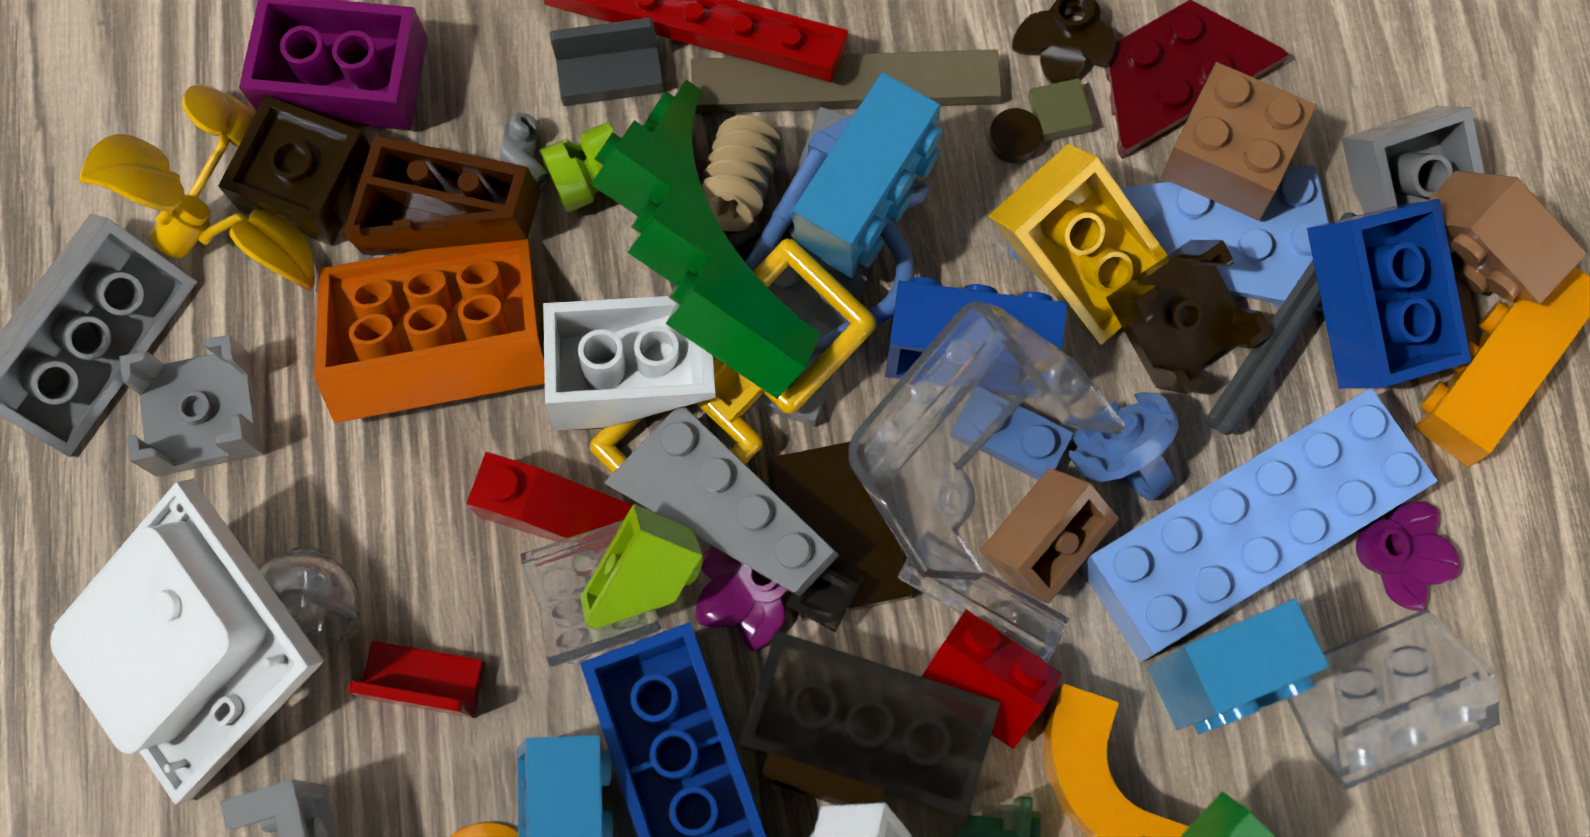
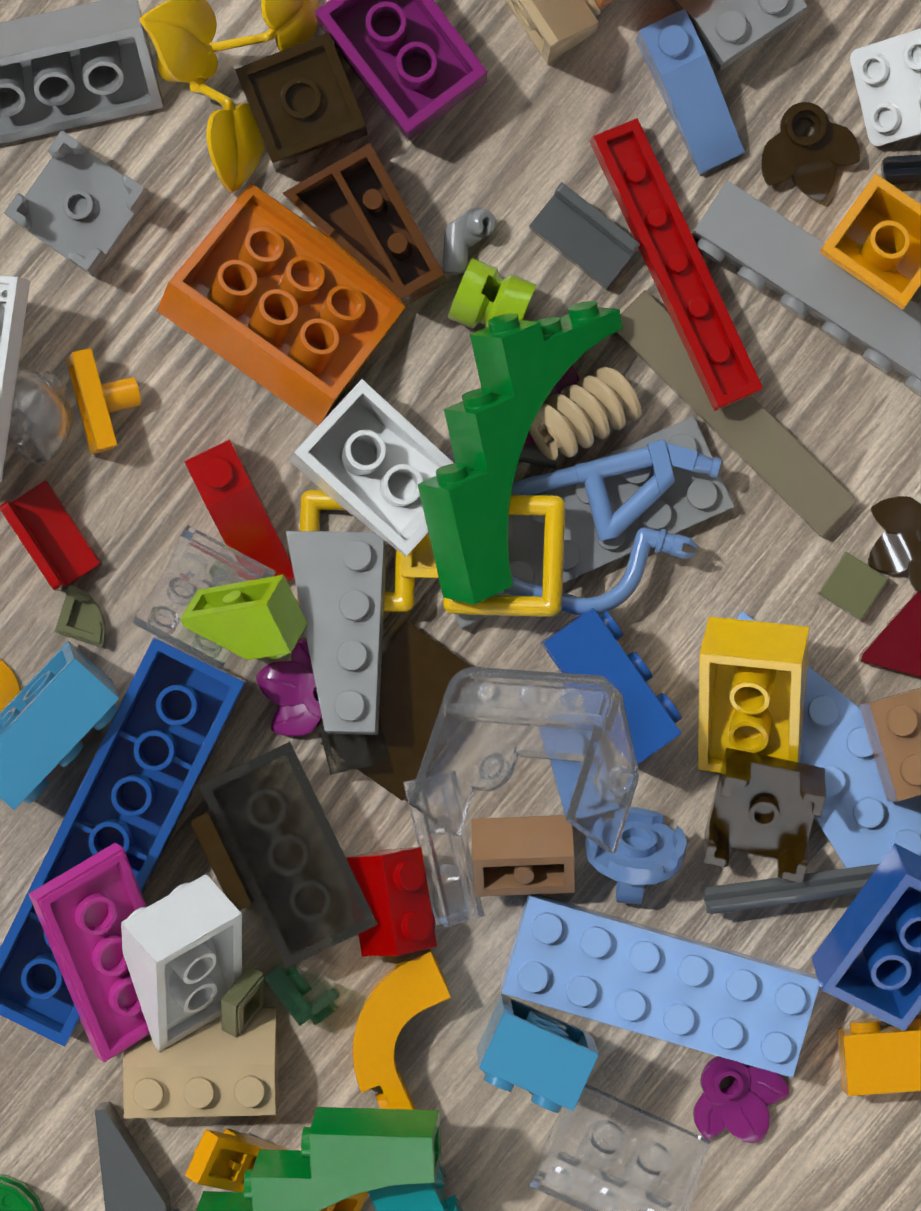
camera: 40 degrees right, 15 degrees up
(353, 537) = (98, 399): none -> light orange tile
(510, 720) = (81, 618): none -> olive tile
(868, 176) = (646, 522): dark azure brick -> none
(1015, 135) = (802, 571): dark brown tile -> none

